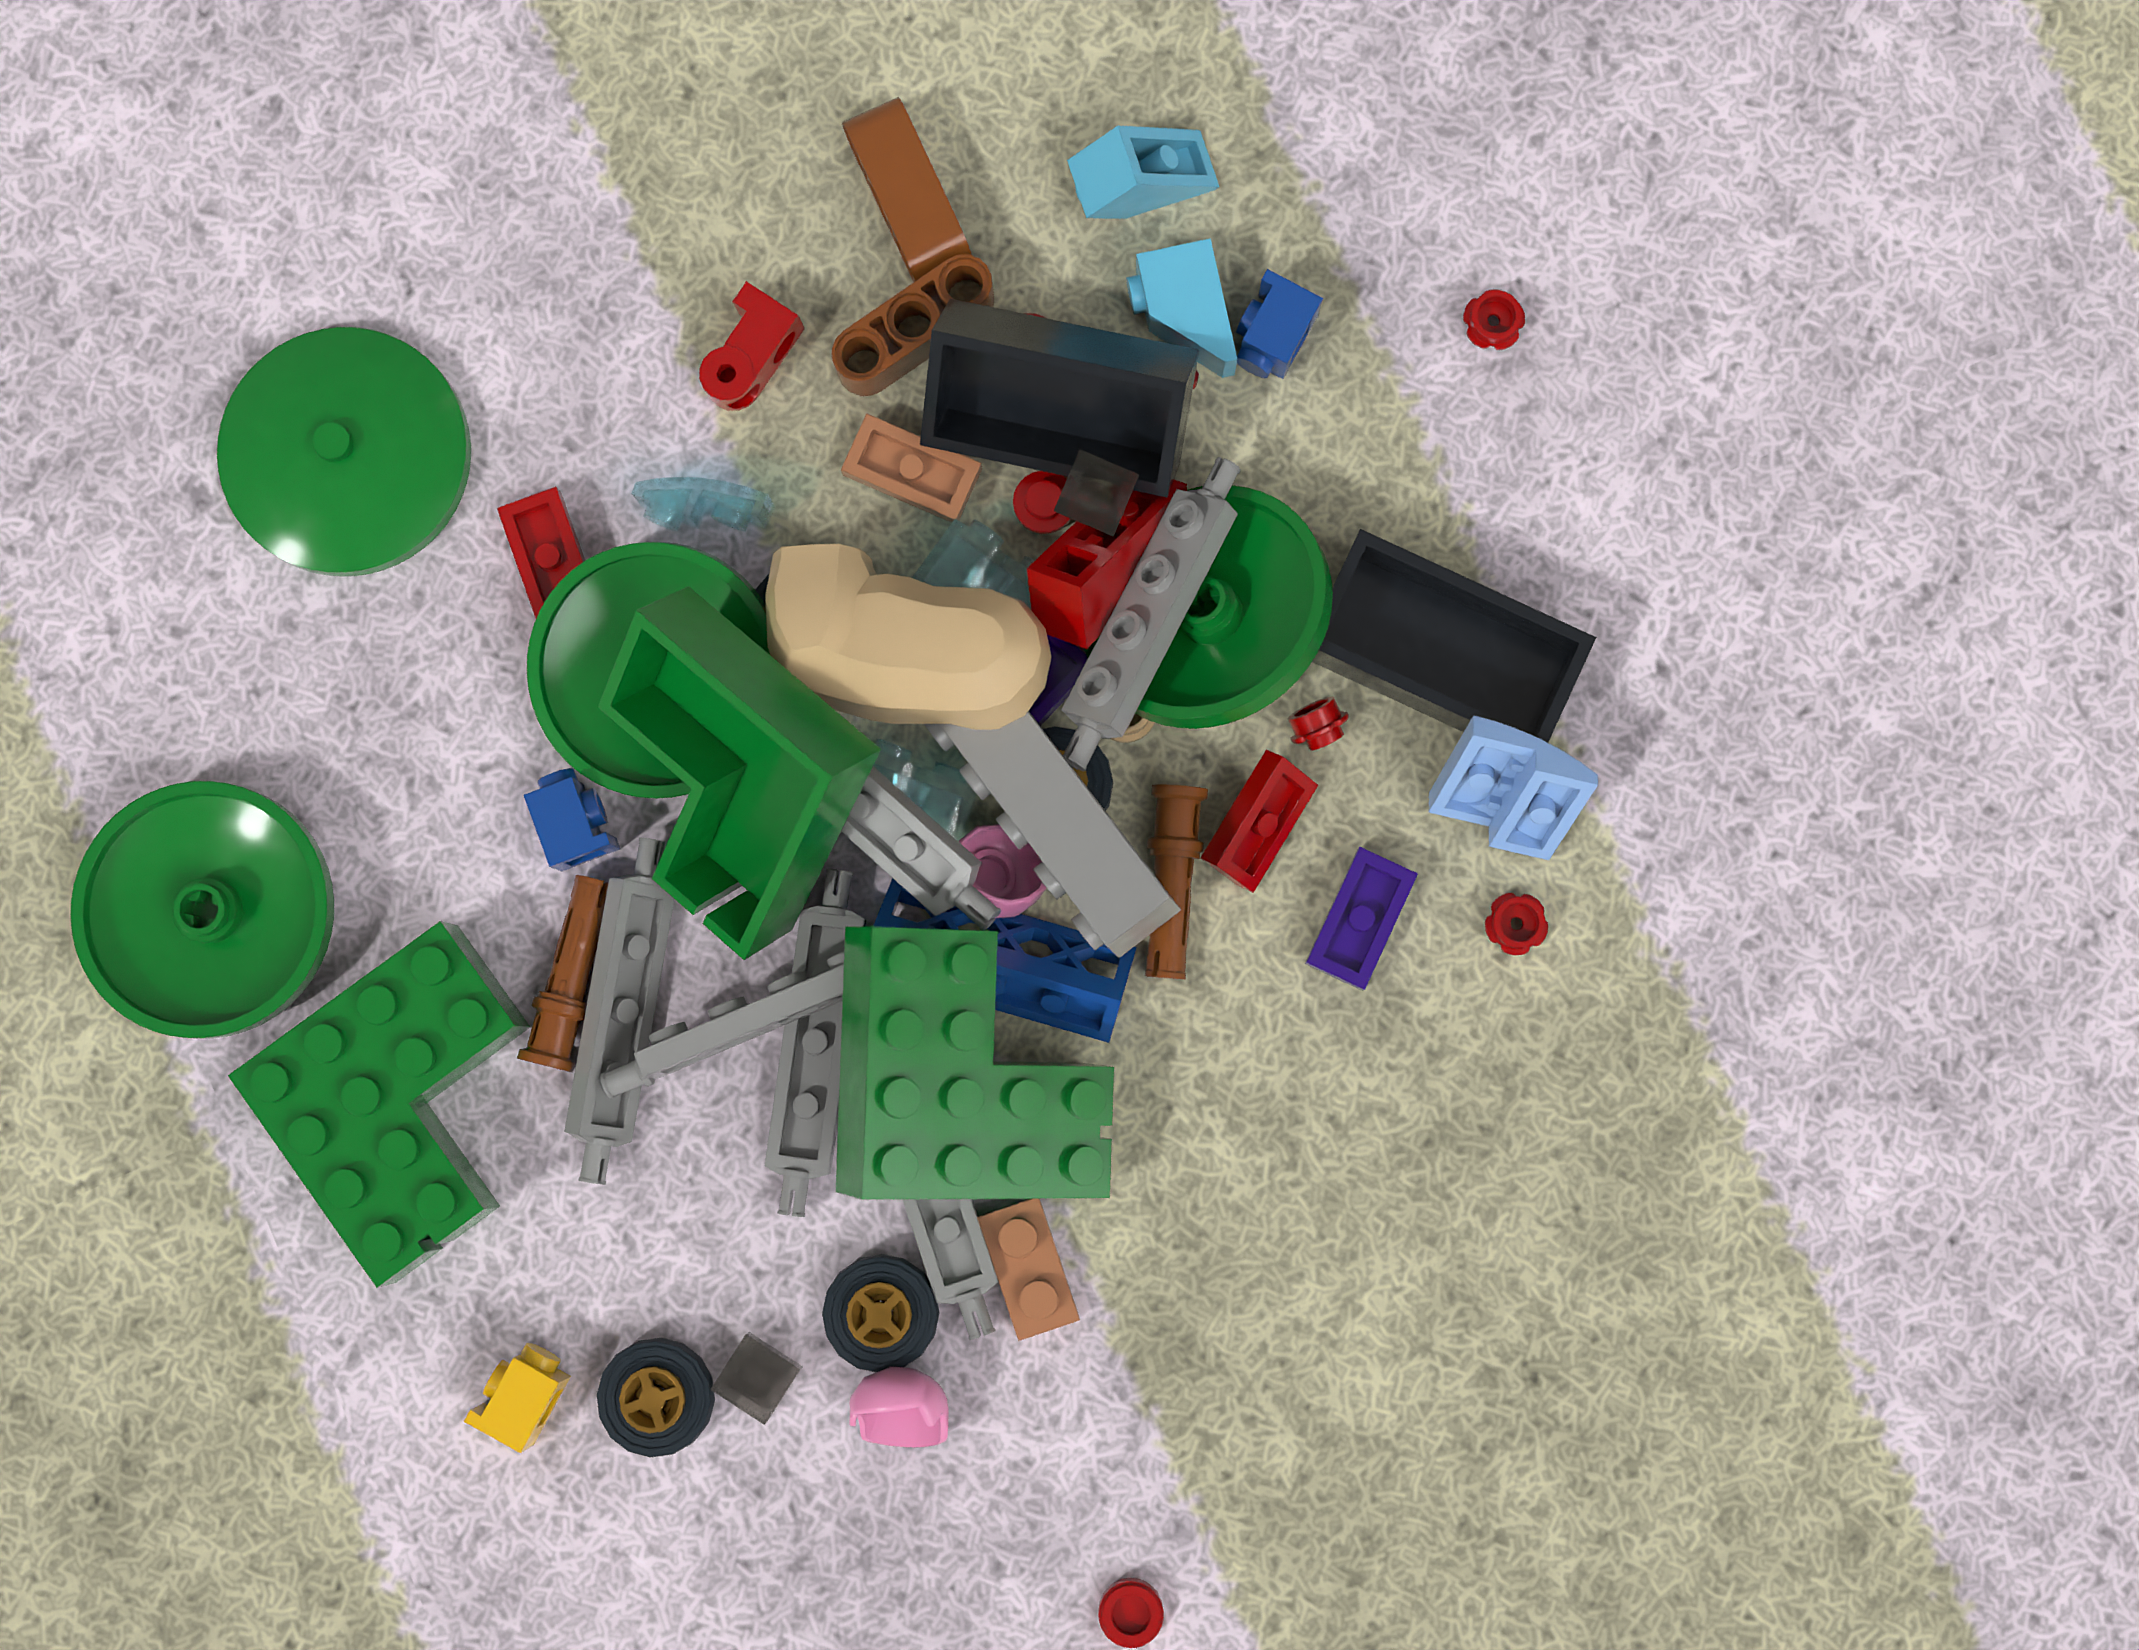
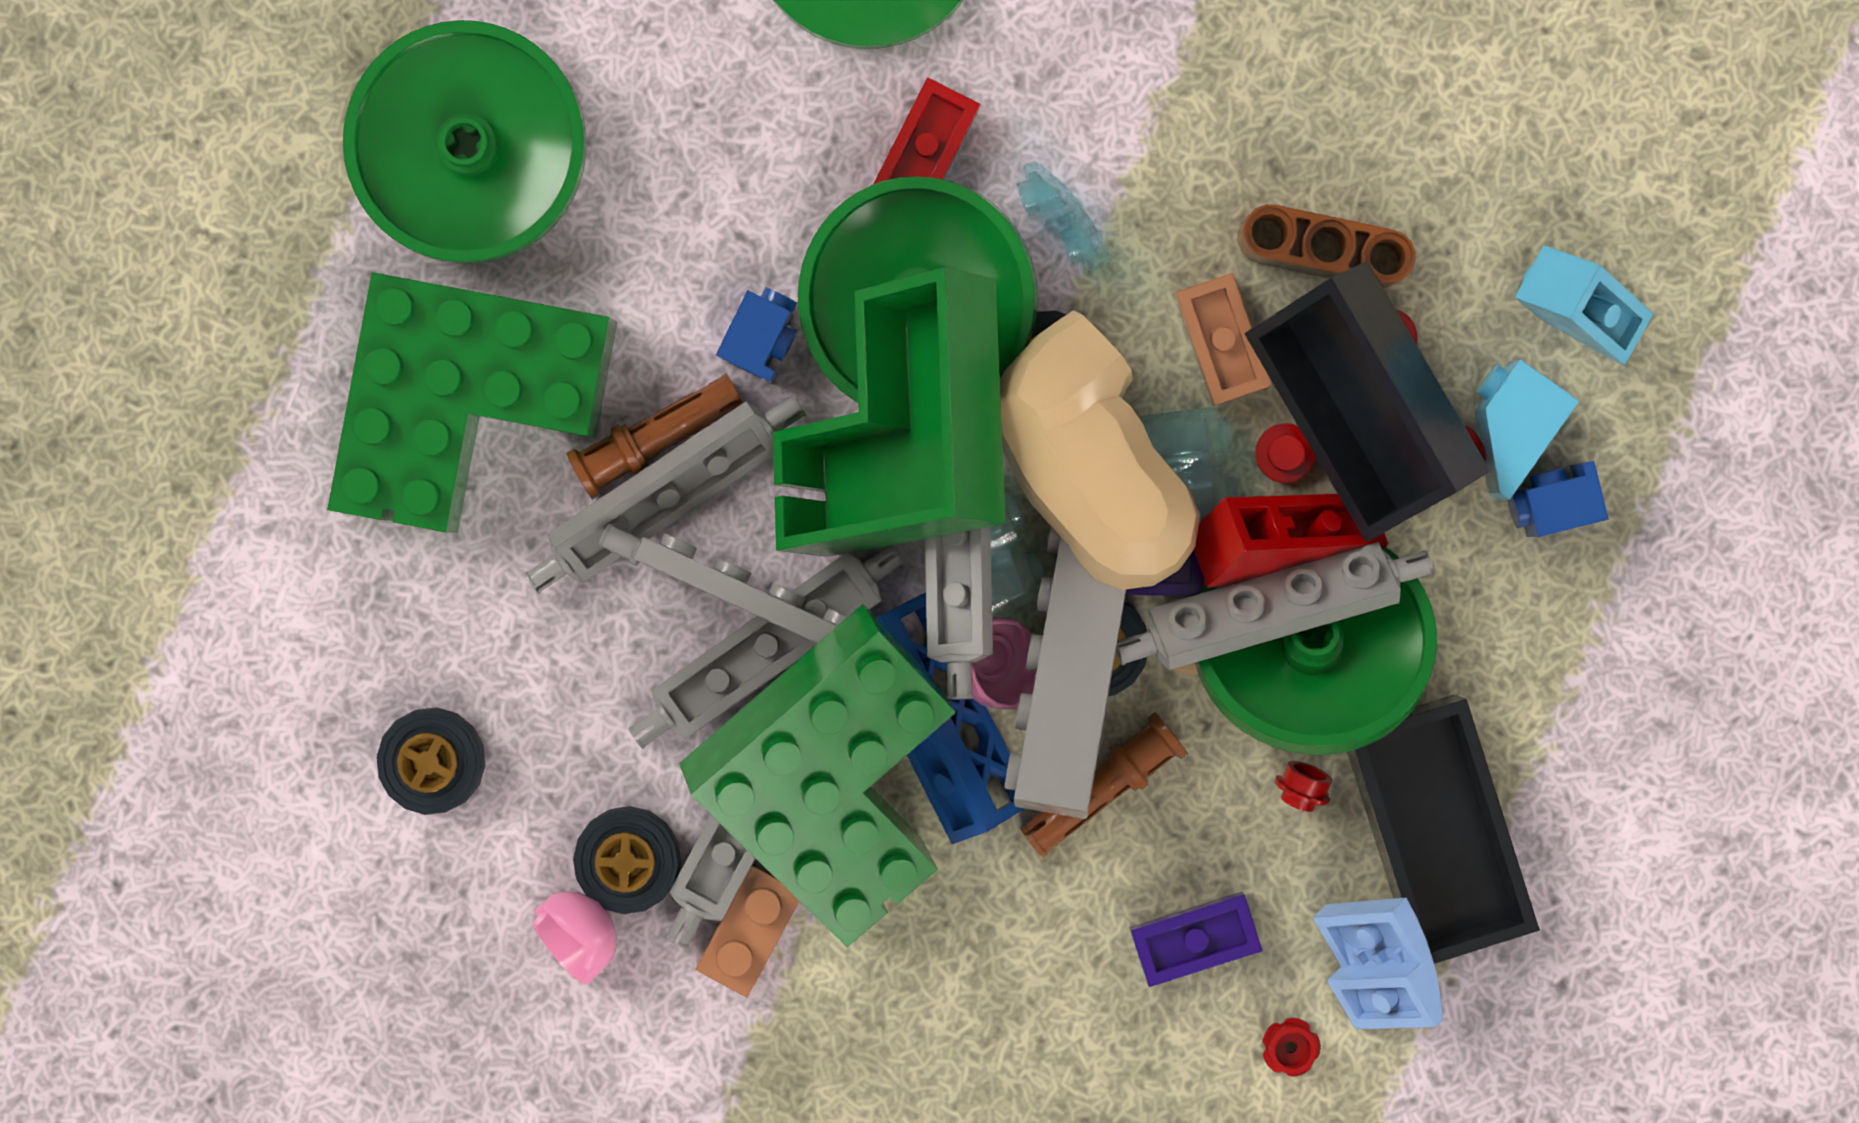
camera: 40 degrees right, 5 degrees up
(520, 1398) = (346, 671): yellow brick -> none
(752, 353) = (1184, 153): red leg -> none
(756, 1378) = (506, 817): clear smoke plate -> none
(905, 187) = (1418, 149): dark orange beam -> none
(1096, 492) = (1323, 493): clear smoke plate -> none
(1259, 821) = (1199, 808): red plate -> none
(1497, 304) = (1720, 647): red plate -> none

